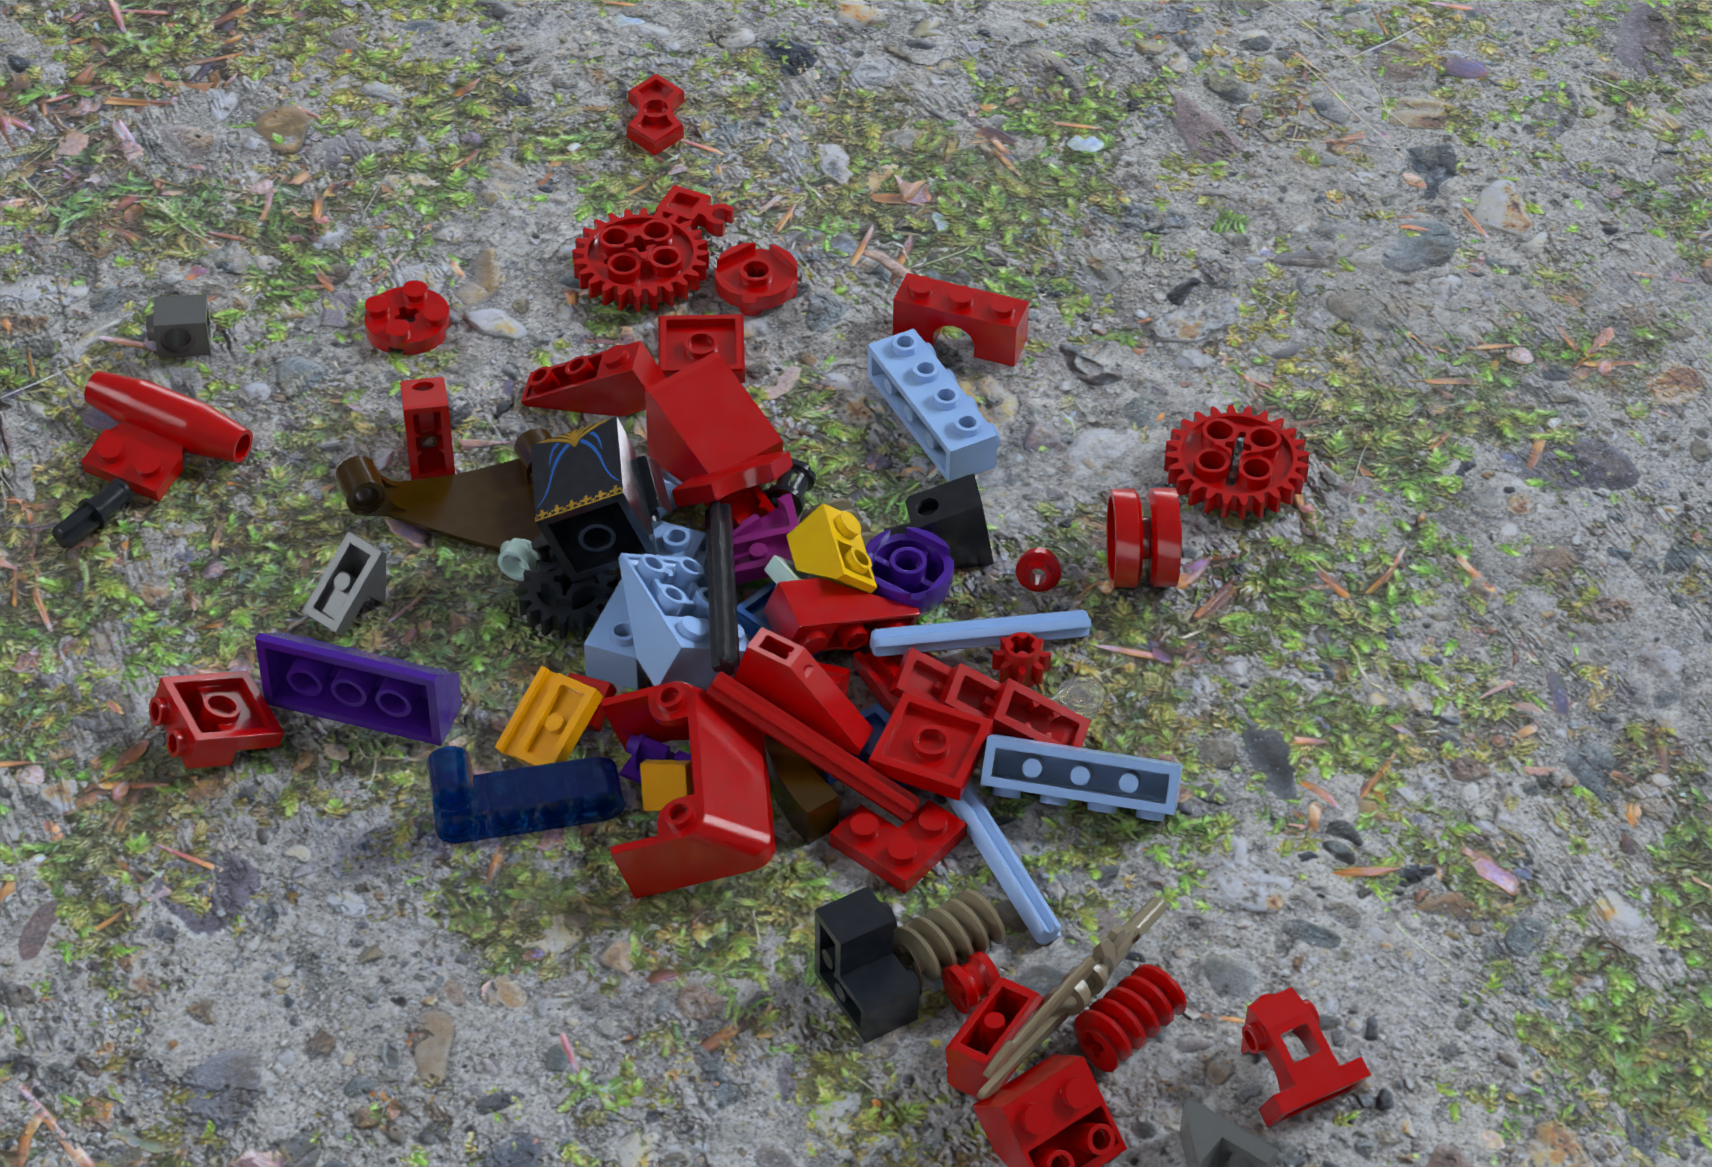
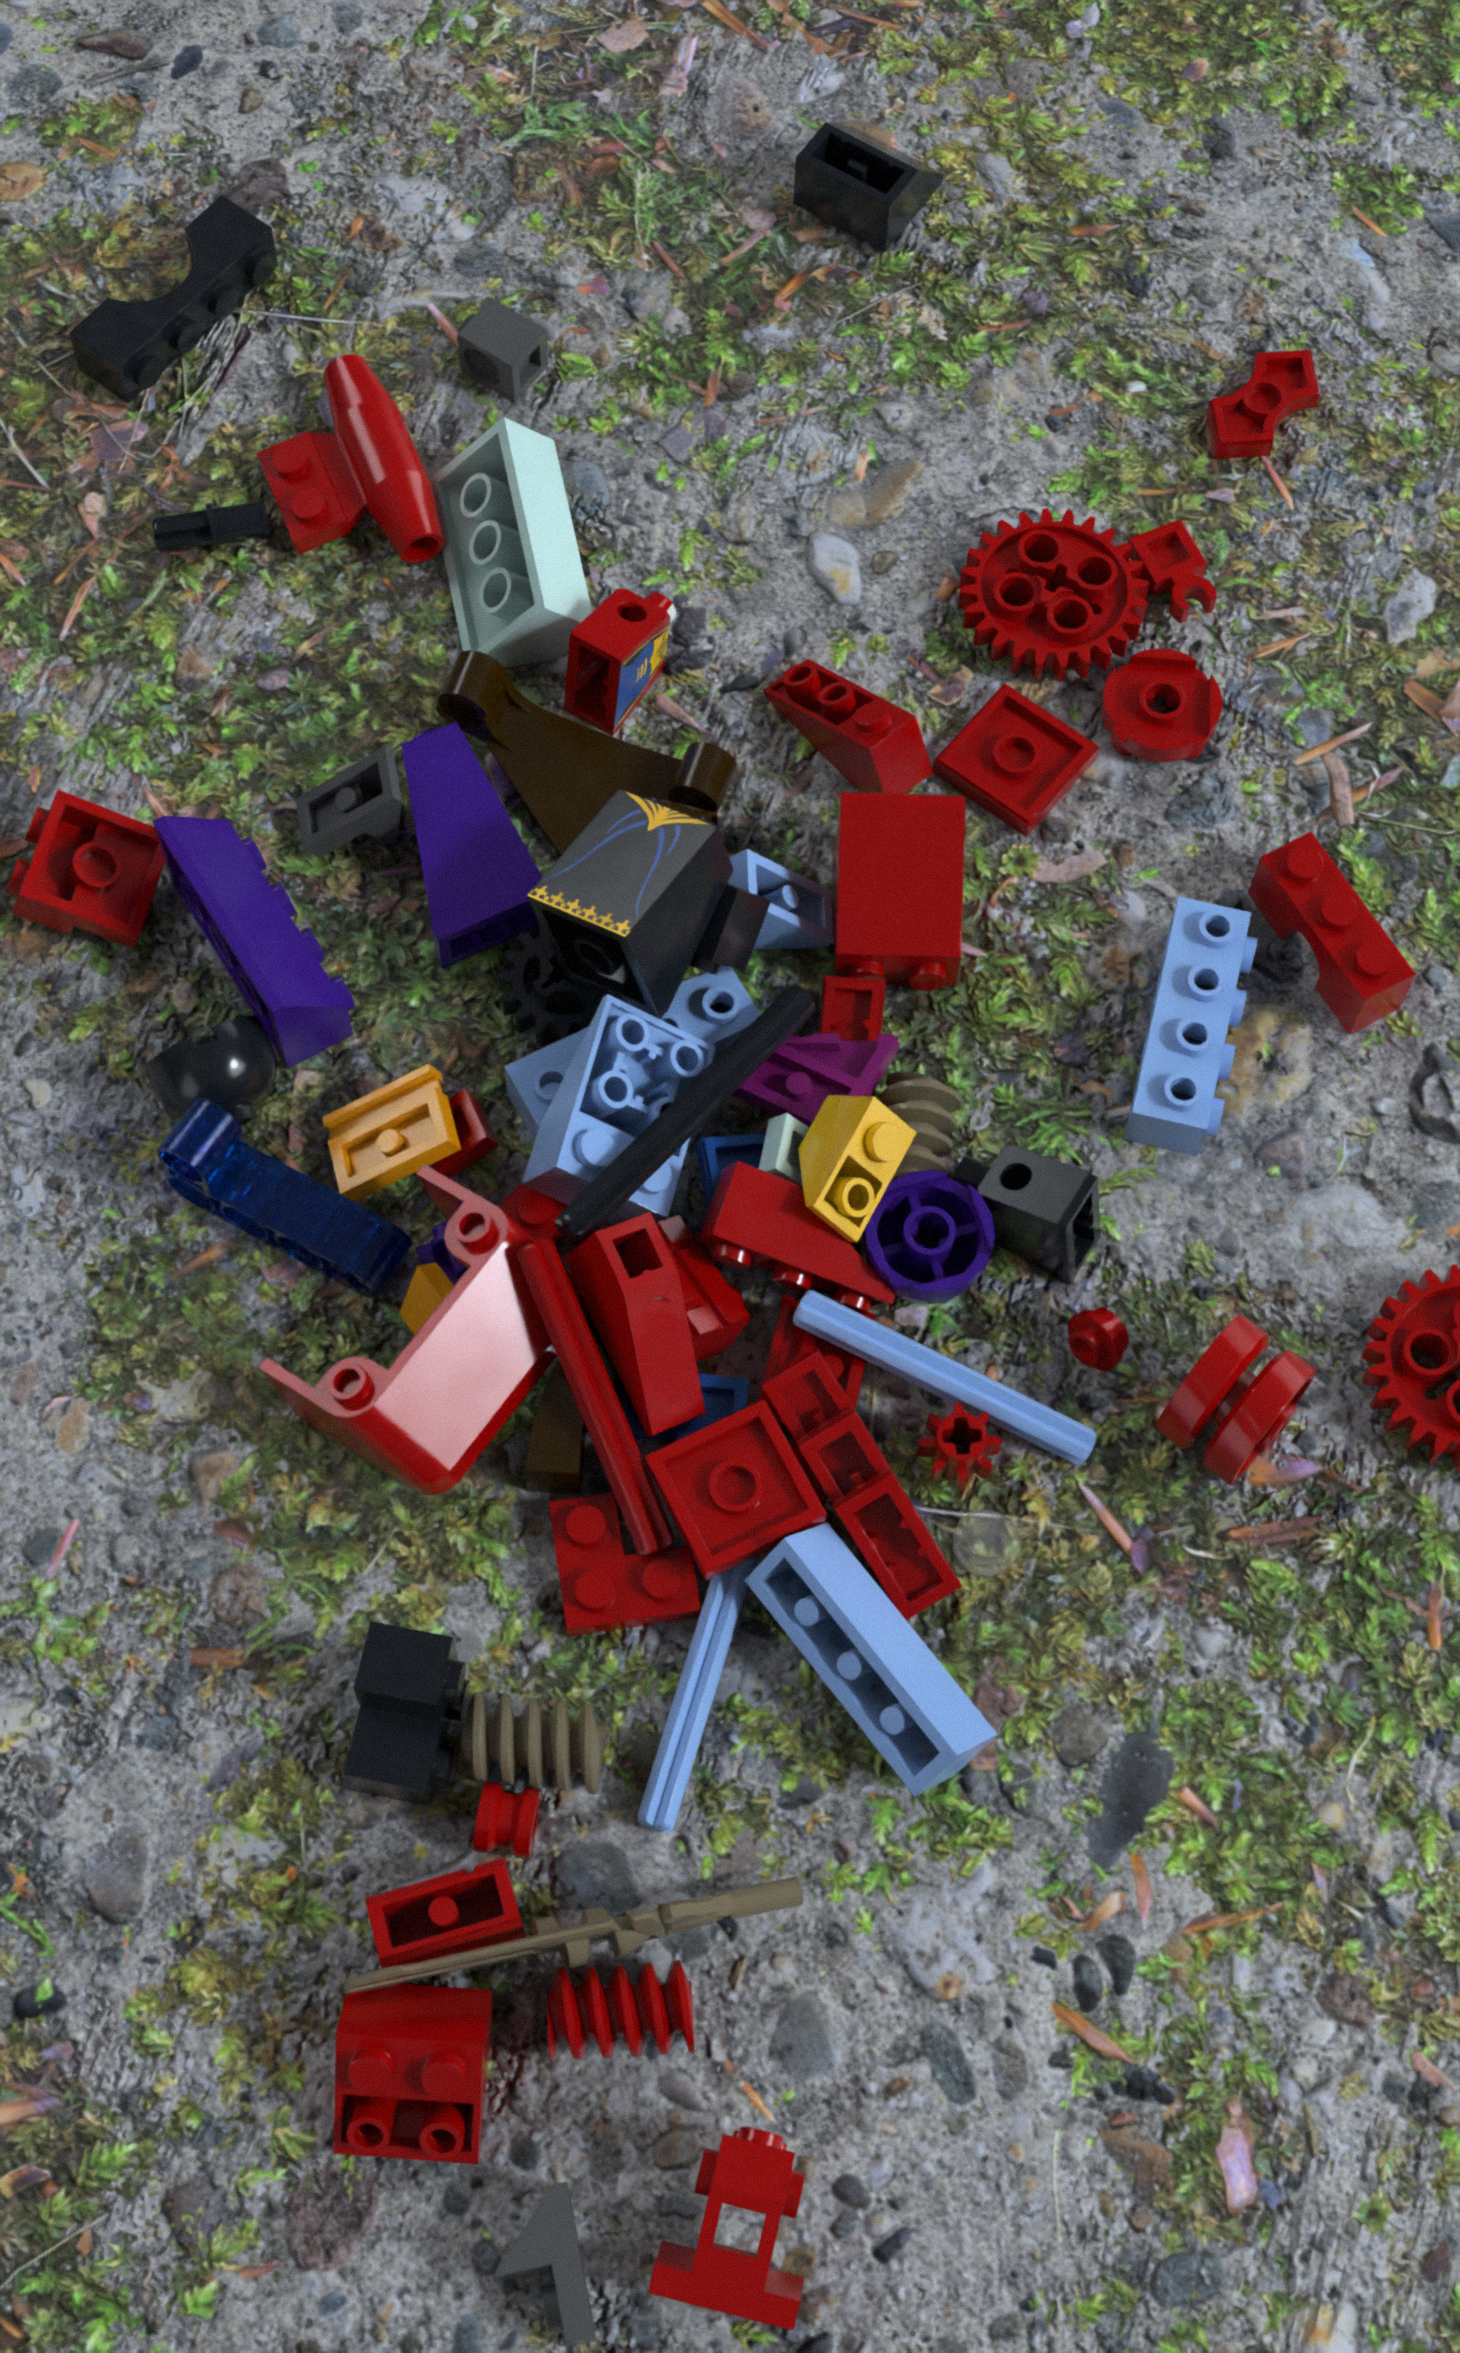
camera: 40 degrees right, 20 degrees up
(298, 414) = (510, 547): none -> light aqua slope
(314, 131) = (861, 184): none -> black slope
(403, 759) = (227, 1068): none -> black cylinder
(412, 301) = (749, 472): red plate -> none
(442, 570) = (467, 848): none -> dark purple slope
(718, 484) = (877, 981): red tile -> none
(804, 482) = (928, 1020): black bush -> none

